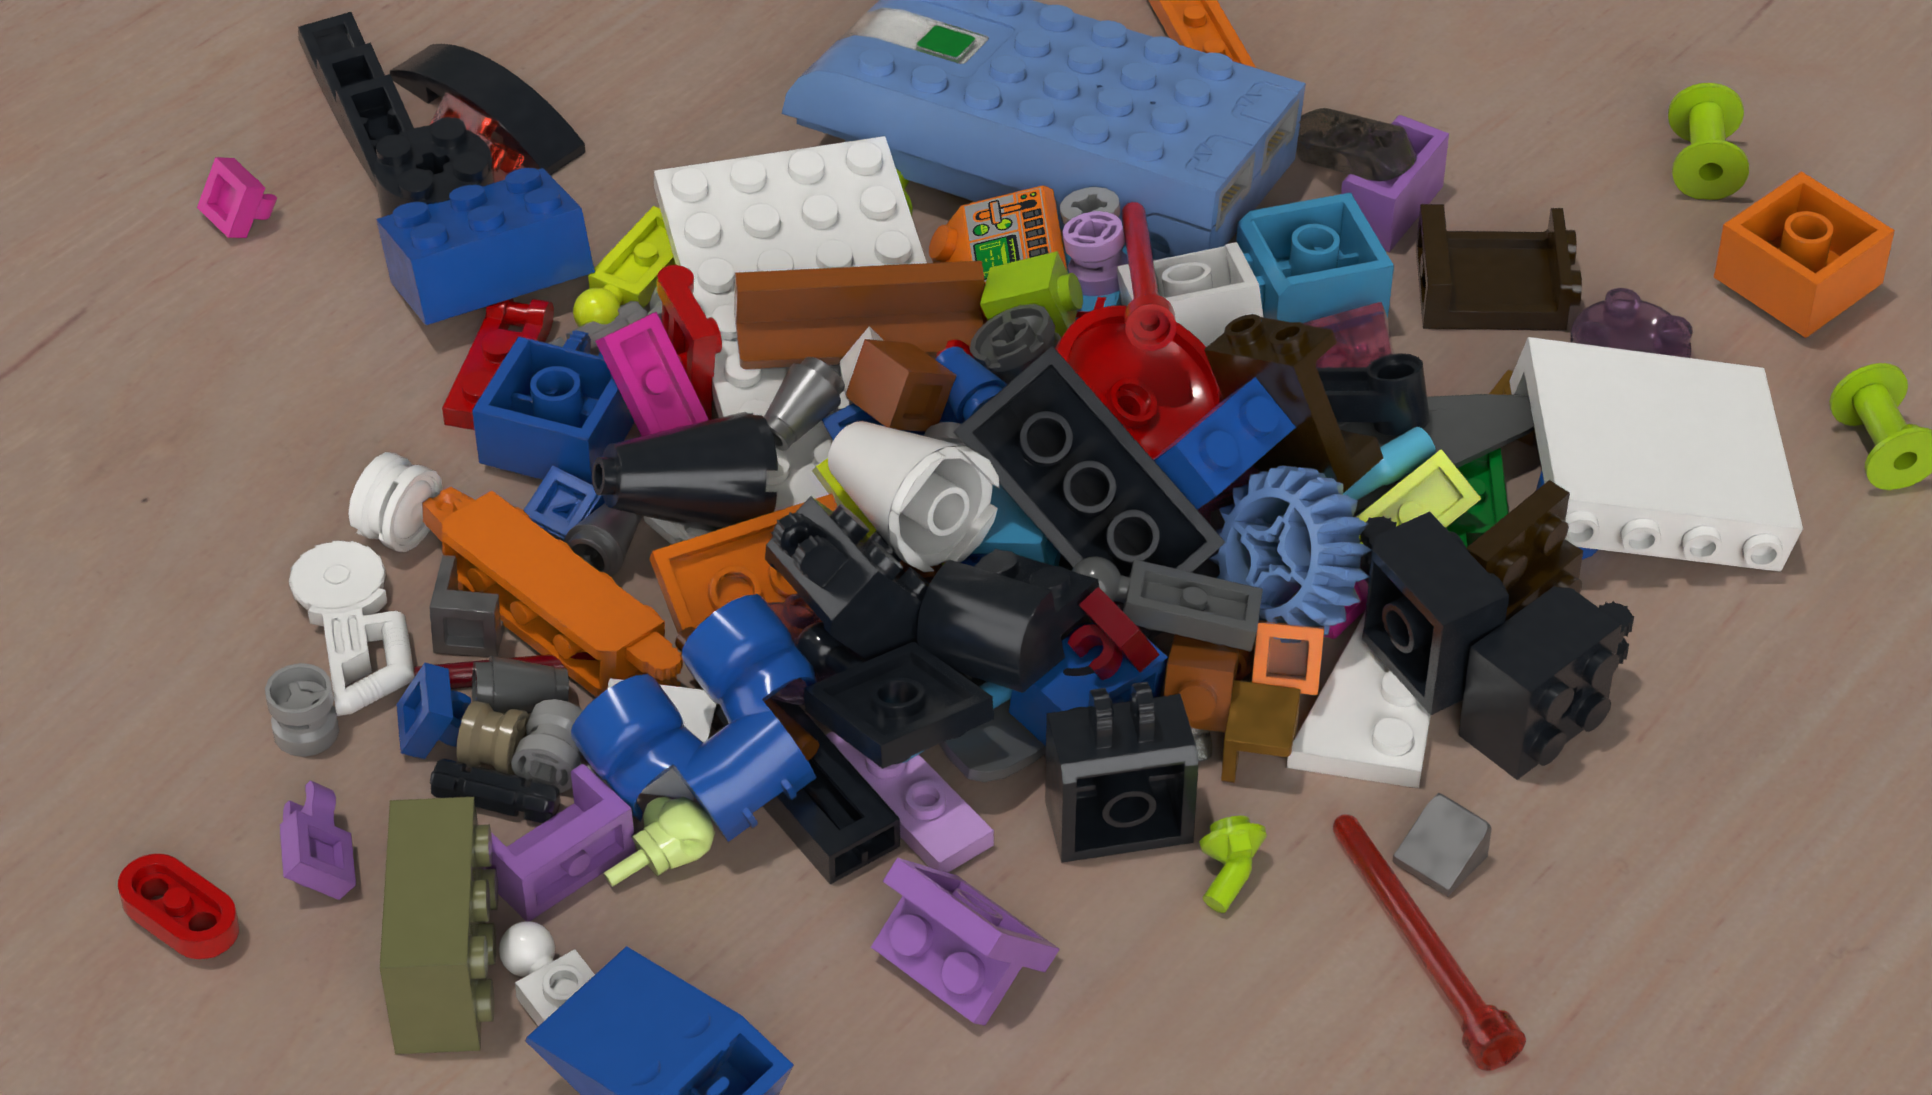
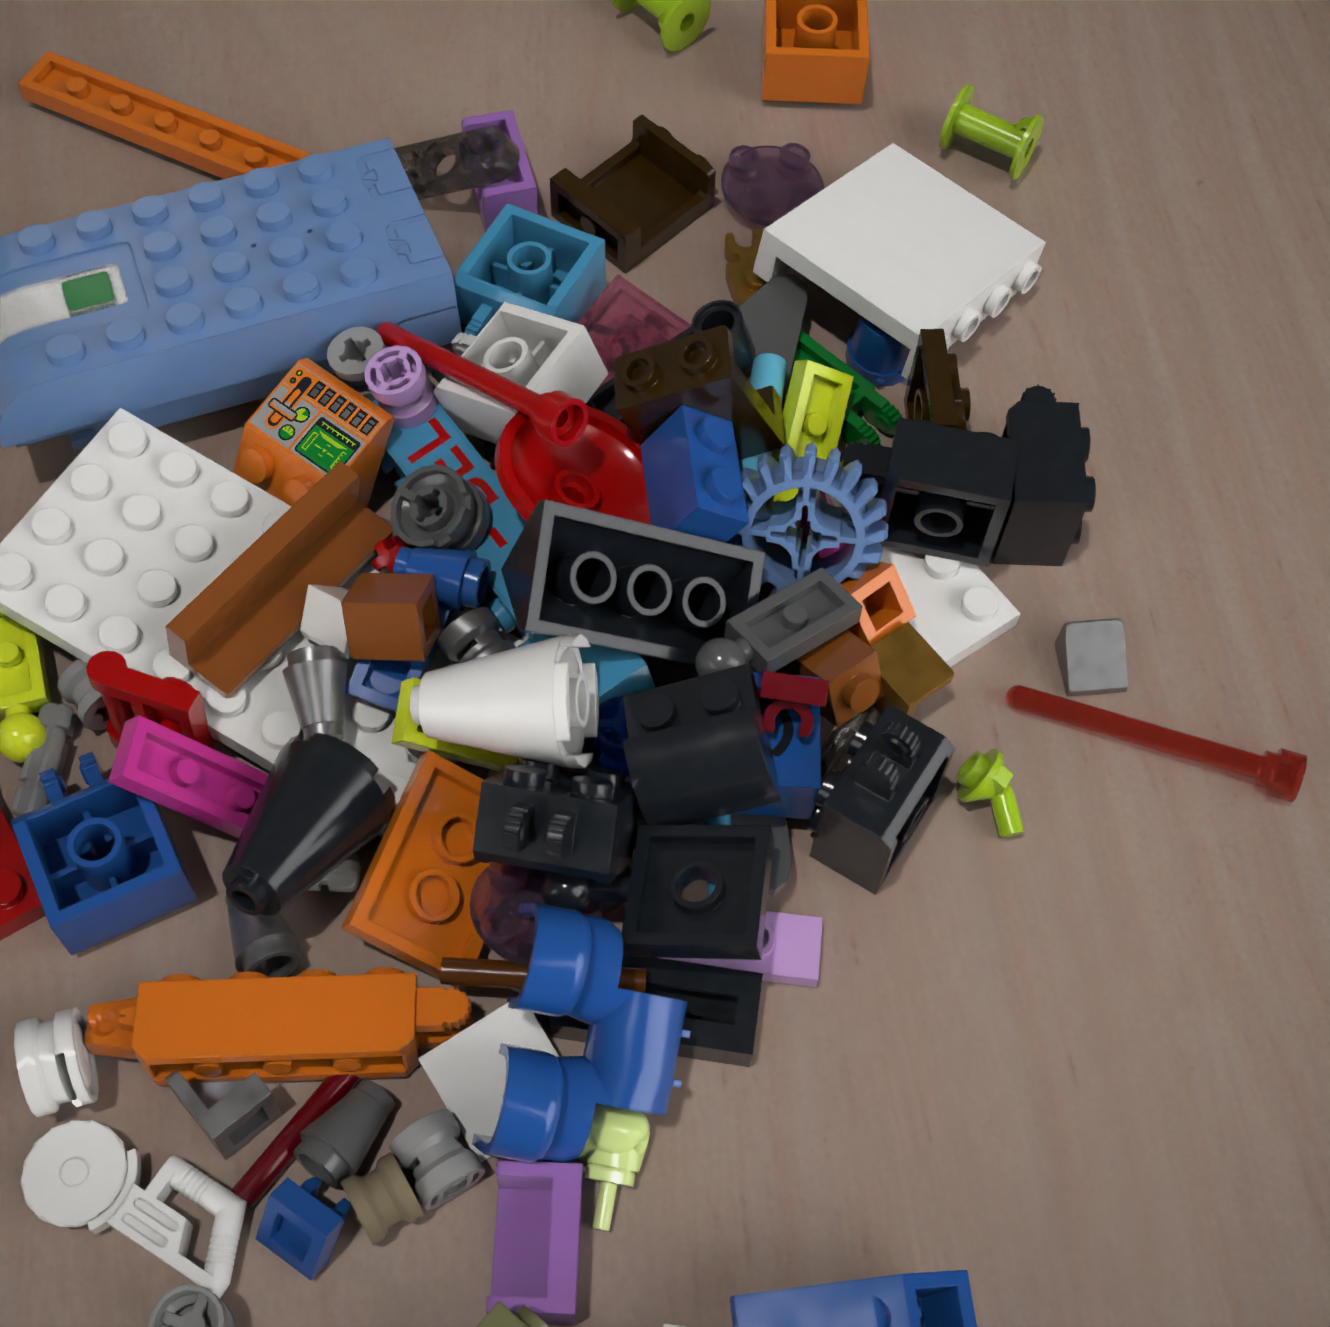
camera: 50 degrees left, 15 degrees up
(495, 790) = (427, 1241): black axle -> none
(562, 502) = (195, 936): blue tile -> none
(957, 940) = (914, 1031): medium lavender bracket -> none
(1034, 281) = (393, 453): lime brick -> none

